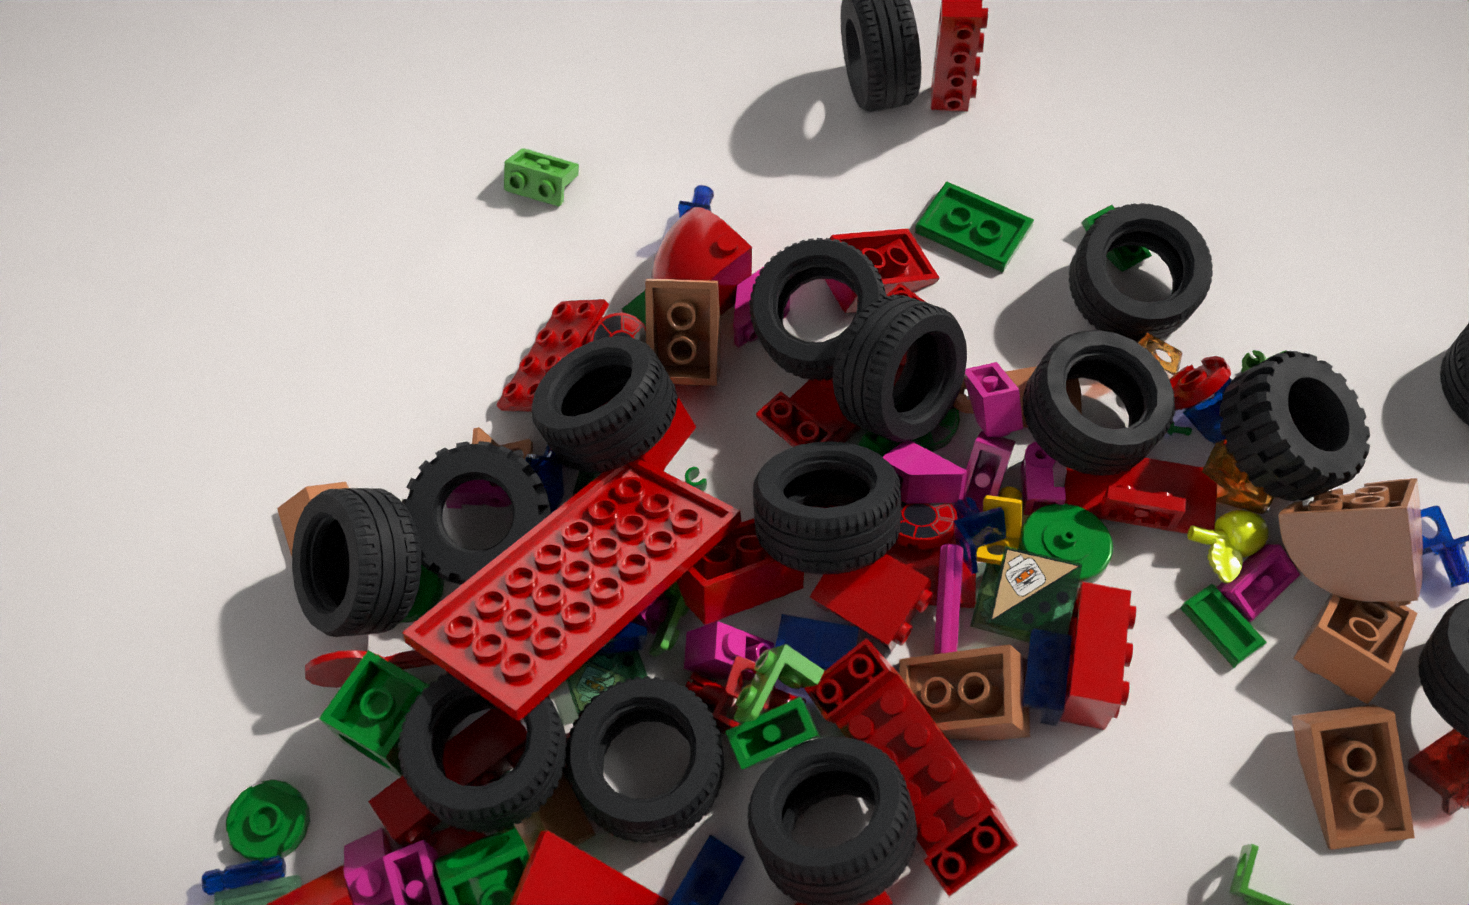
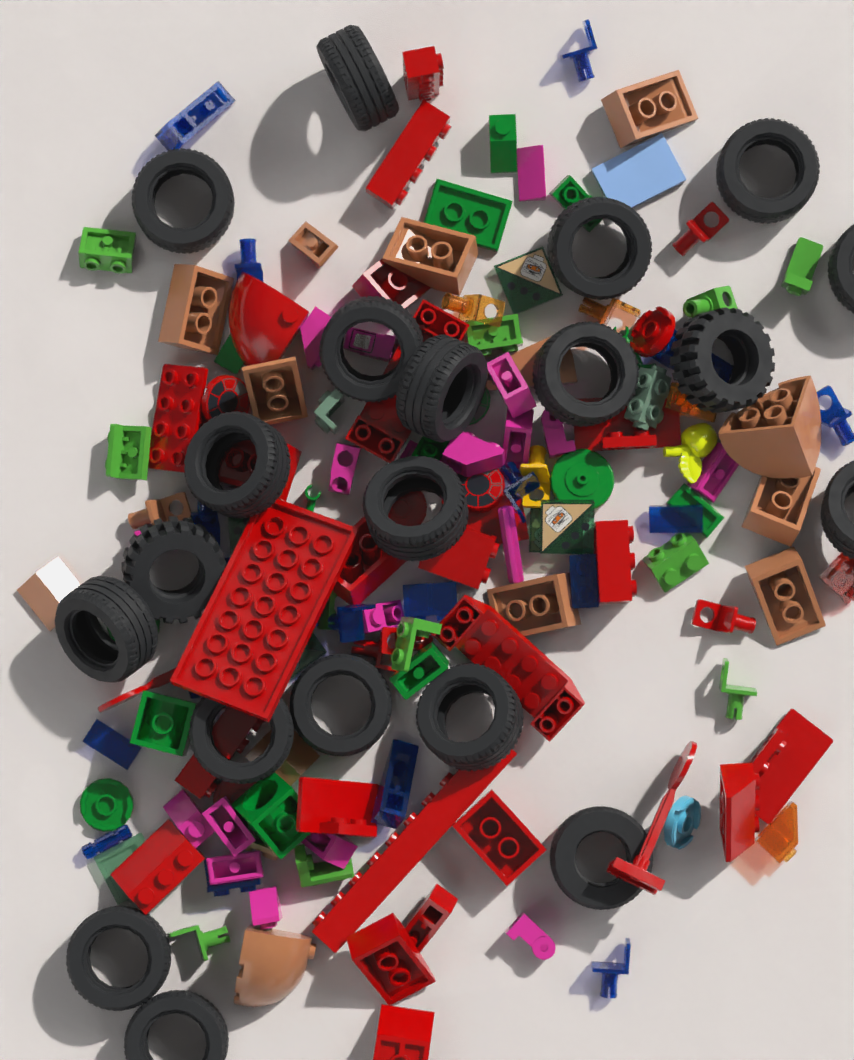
camera: 20 degrees left, 25 degrees up
(310, 737) = (112, 744): none -> clear blue tile
(478, 379) = (128, 452): none -> bright green bracket
(618, 249) = (196, 309): none -> nougat slope
(642, 104) = (159, 171): none -> black tyre
(679, 74) = (195, 117): none -> clear blue slope
(694, 632) = (349, 621): none -> clear blue bracket
(745, 379) = (328, 404): none -> sand green bracket
(745, 456) = (343, 468): none -> dark pink leg
(785, 214) = (313, 244): none -> nougat slope
(813, 324) = (369, 344): none -> dark pink leg
(918, 147) = (408, 155): none -> red brick
(926, 246) = (432, 254): none -> nougat slope
(965, 309) = (473, 308): none -> clear orange bracket
(991, 346) = (492, 338): none -> bright green bracket
(1035, 158) = (503, 143): none -> green slope
(1036, 306) = (528, 281): none -> tile
(1063, 198) = (531, 173): none -> dark pink slope
(1146, 95) = (581, 57): none -> clear blue bracket
(1179, 456) = (649, 398): none -> sand green brick
(1187, 684) = (675, 560): none -> bright green bracket
(1195, 625) = (676, 519): none -> clear blue tile
(1217, 217) = (639, 172): none -> light blue tile
(1218, 159) = (649, 108): none -> nougat slope
(1251, 784) = (724, 618): none -> red bracket
(1270, 292) = (699, 230): none -> red bracket
(1382, 205) = (788, 139): none -> black tyre
(1406, 360) = (802, 267): none -> bright green bracket

